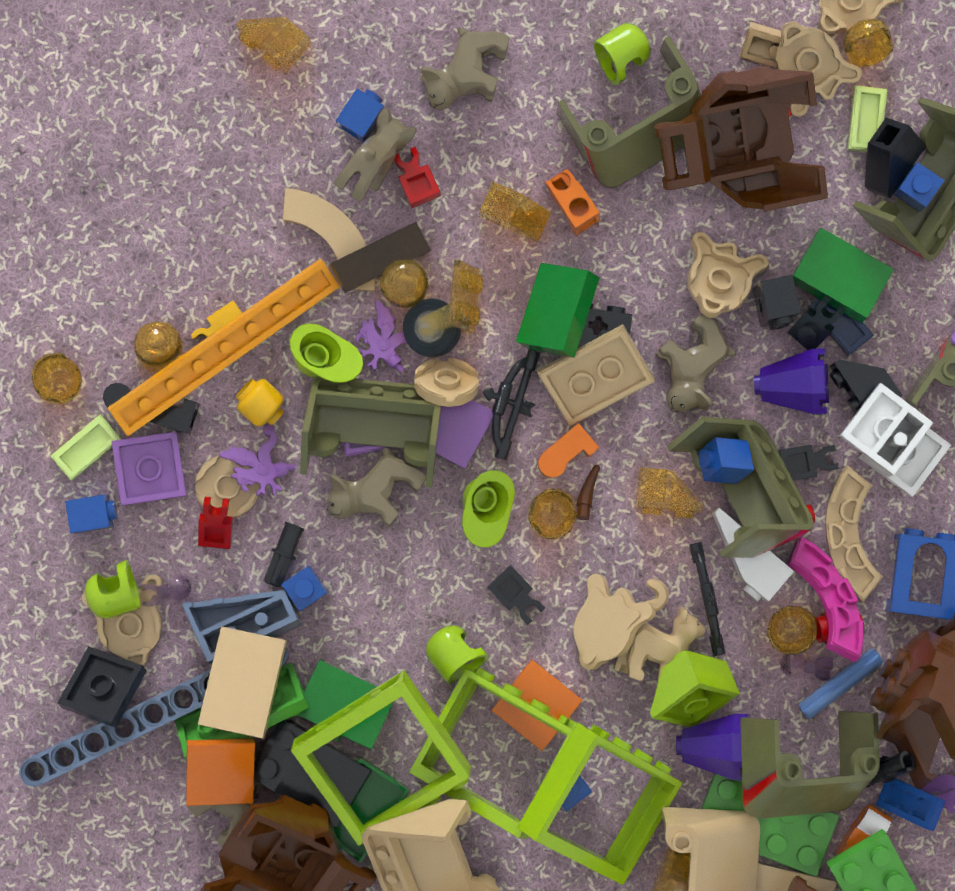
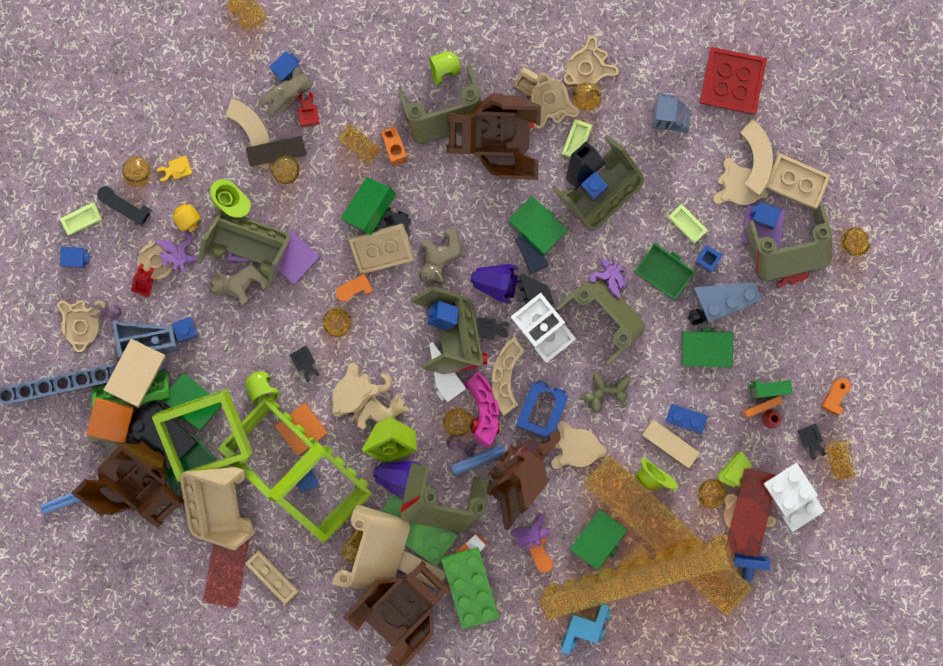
camera: 25 degrees right, 0 degrees up
(56, 378) = (73, 175): clear yellow hair -> none
(102, 686) = (55, 357): black plate -> none
(113, 595) = (75, 306): lime helmet -> none
(148, 468) = (113, 239): medium lavender plate -> none
(223, 347) = (173, 180): light orange plate -> none
(283, 554) = (178, 307): black axle -> none
(382, 345) = (266, 201): medium lavender piece -> none
(436, 326) = (297, 198): plate -> none
(446, 382) = (295, 232): tan tile -> none
(465, 72) = (351, 55): dark tan animal -> none
(487, 508) = (300, 309): lime piece -> none
(519, 405) = (333, 255): black piece -> none
(585, 497) = (360, 316): reddish brown helmet -> none
(664, 491) = (403, 324): clear yellow slope -> none
(709, 599) = (413, 392): black piece -> none
(719, 277) = (467, 210): tan tile -> none
(776, 302) = (495, 232): black brick -> none
(815, 326) = (515, 251): black plate -> none
(893, 766) = (492, 513): black pin -> none
(911, 803) = (499, 537): blue tile -> none

